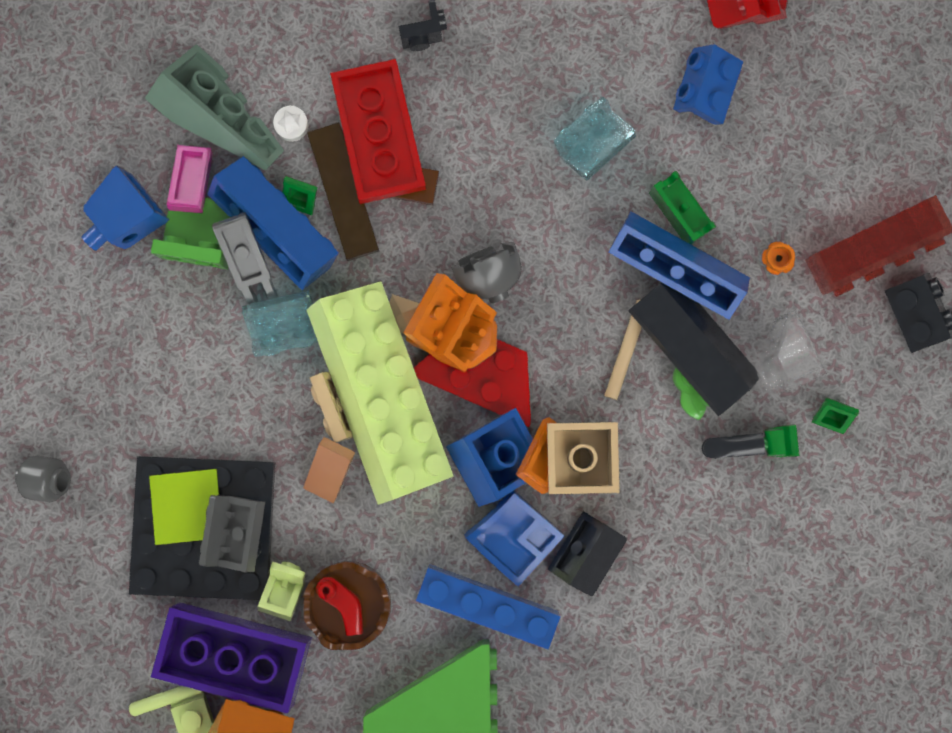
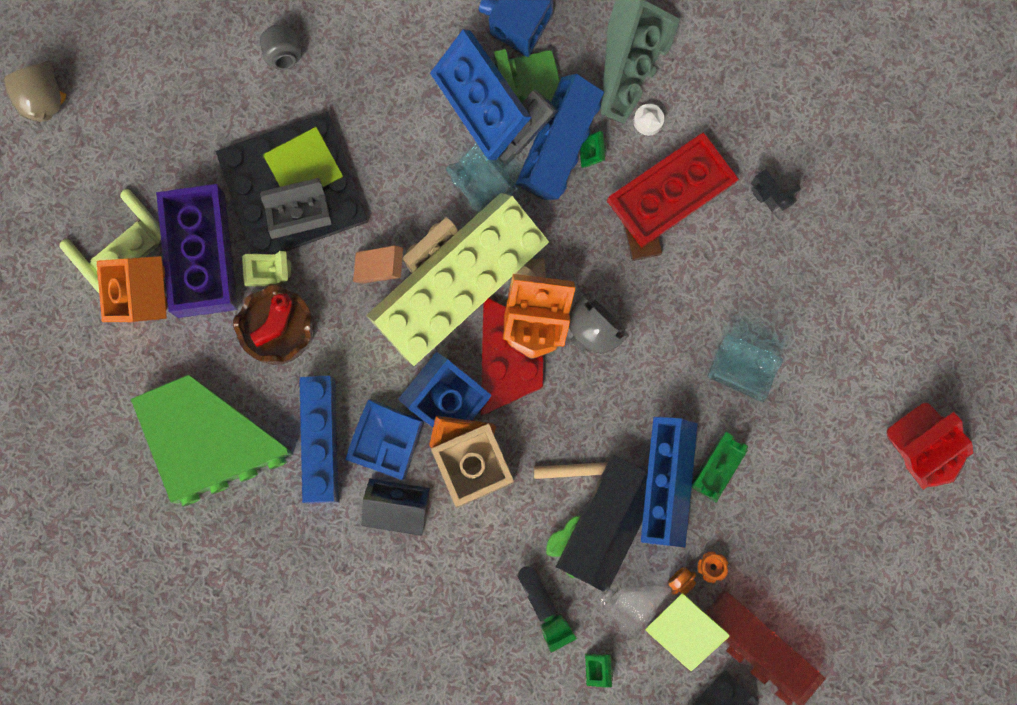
camera: 65 degrees right, 5 degrees down
(189, 179) = (568, 59): dark pink tile -> none
(191, 287) = (480, 95): none -> blue plate
(338, 181) = (592, 198): dark brown tile -> none
(708, 83) = (835, 446): blue bracket -> none
(780, 295) = (682, 581): none -> orange plate
(834, 311) = (687, 632): none -> piece

